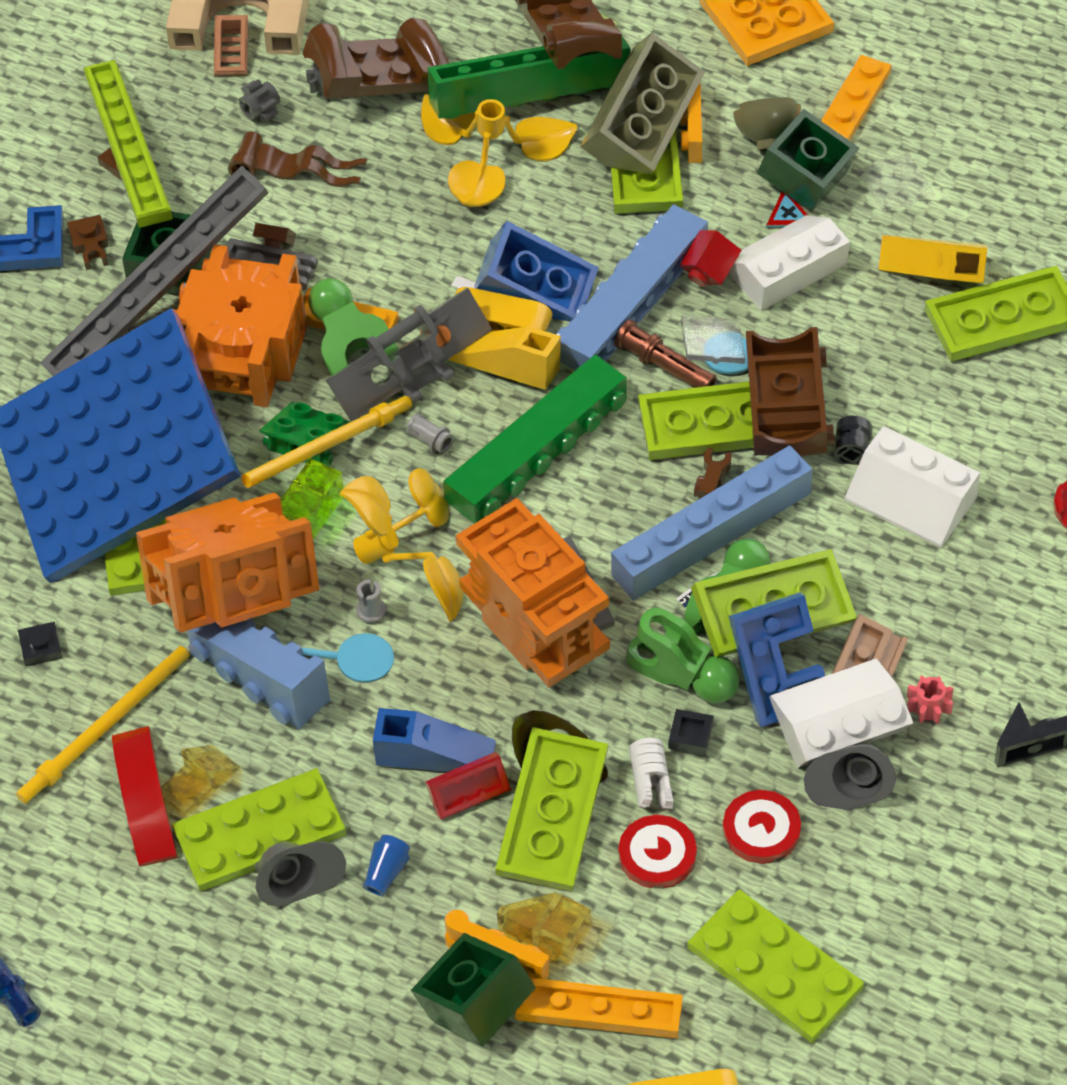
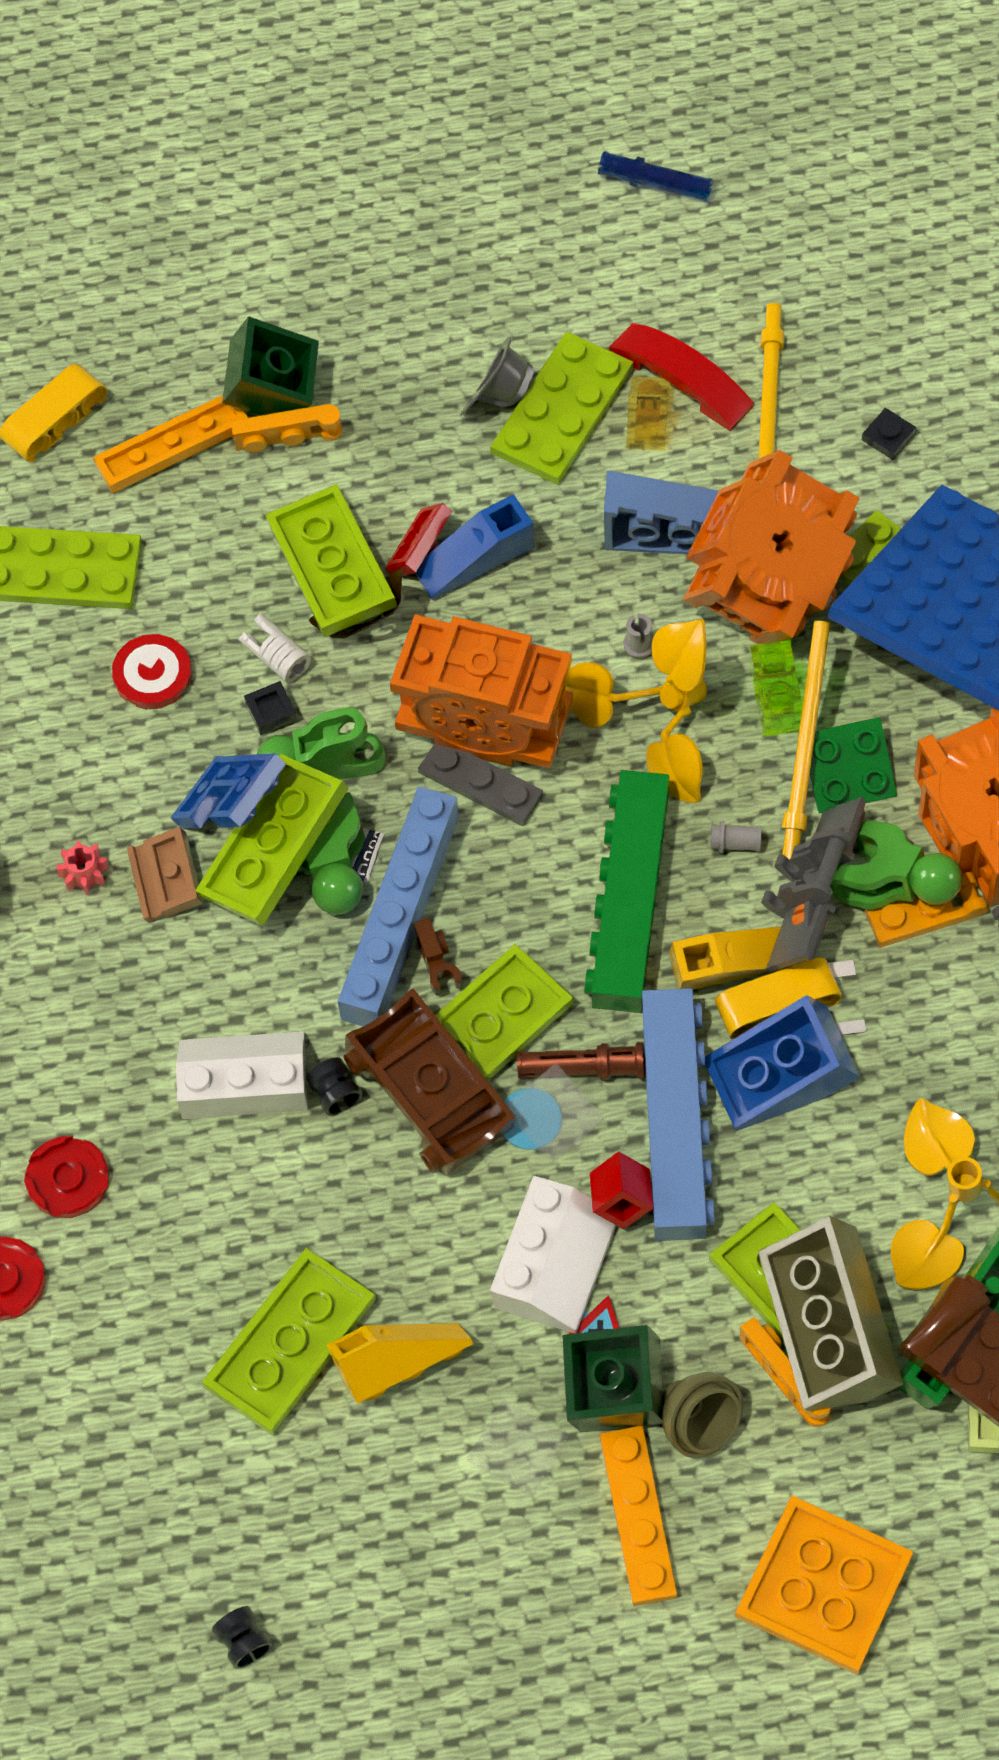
camera: 145 degrees right, 10 degrees up
(360, 657) = (611, 600): medium azure piece -> none
(386, 862) = (433, 442): blue cone -> none
(547, 922) = (262, 472): clear yellow slope -> none
(657, 851) = (222, 595): red tile -> none
(840, 711) = (145, 791): white slope -> none
(850, 777) = (98, 757): dark grey piece -> none

